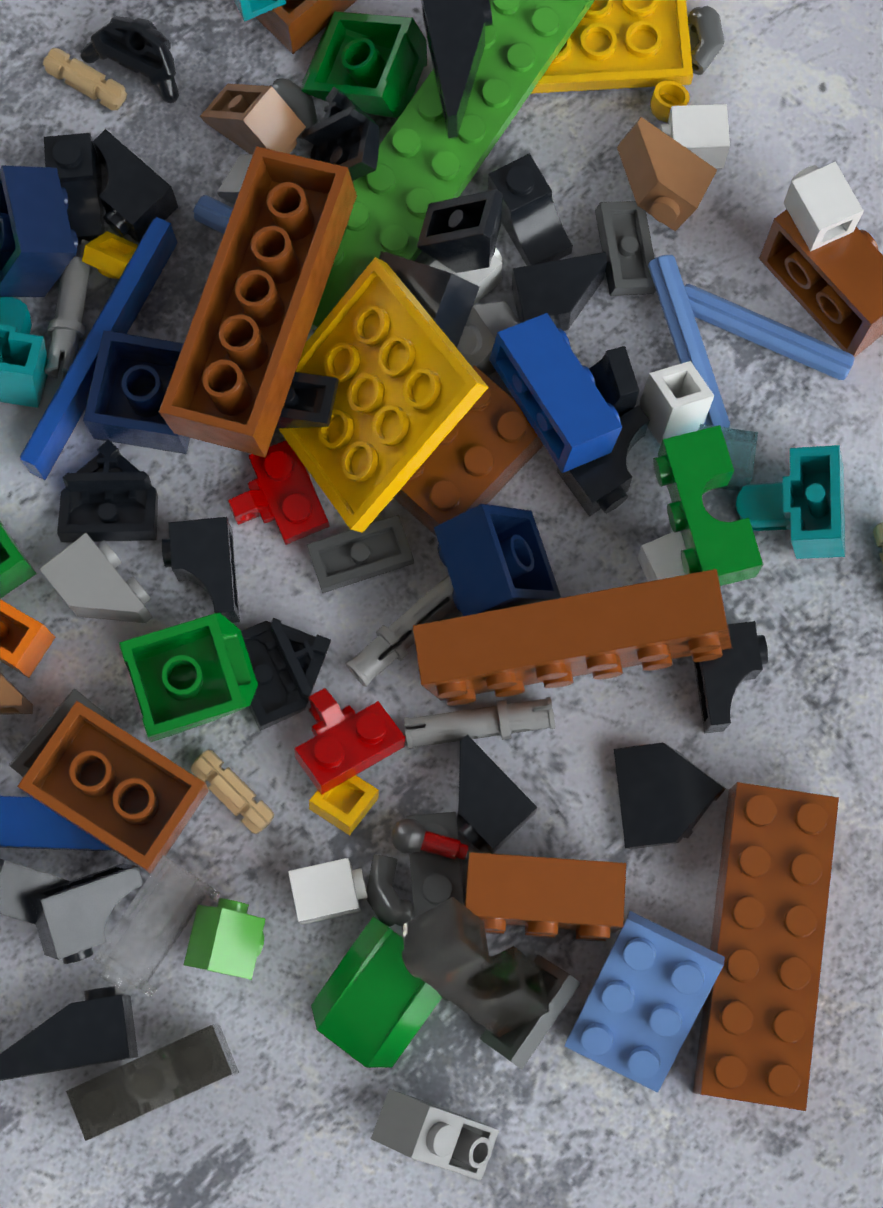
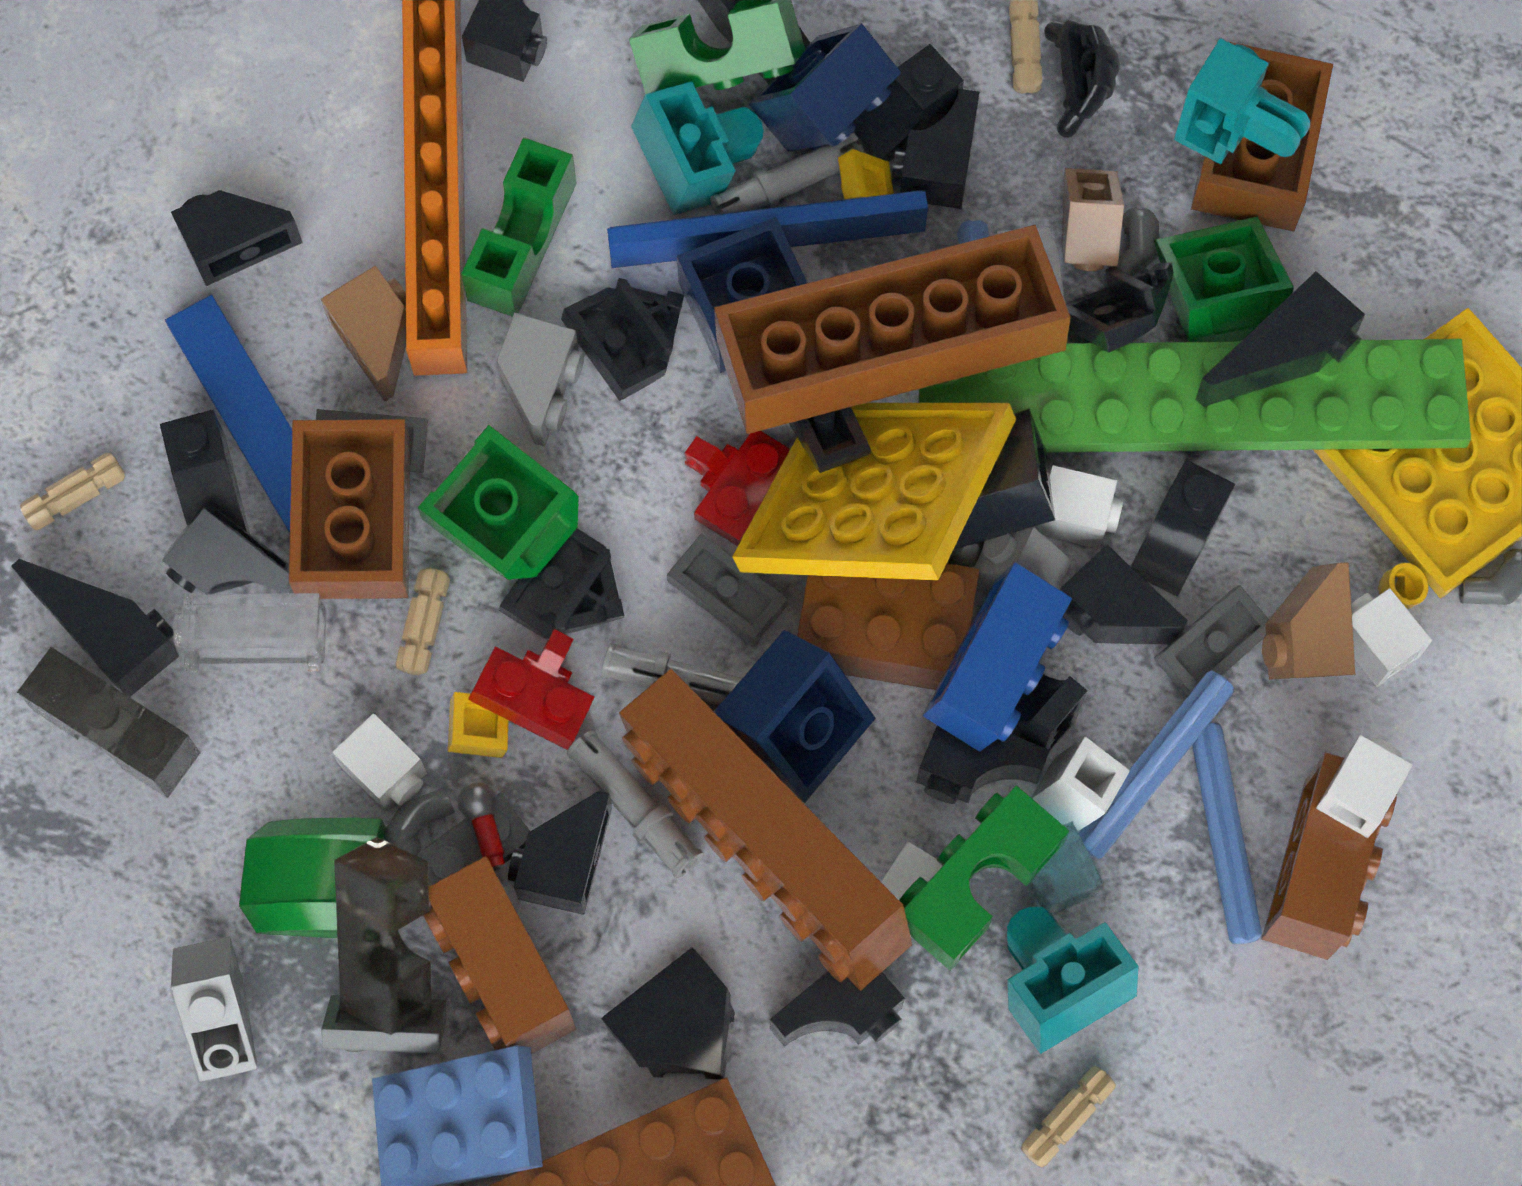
camera: 55 degrees right, 5 degrees down
(205, 555) = (631, 455): black arch -> none
(225, 939) = (277, 701): bright green brick -> none
(463, 230) = (1096, 468): black slope -> none

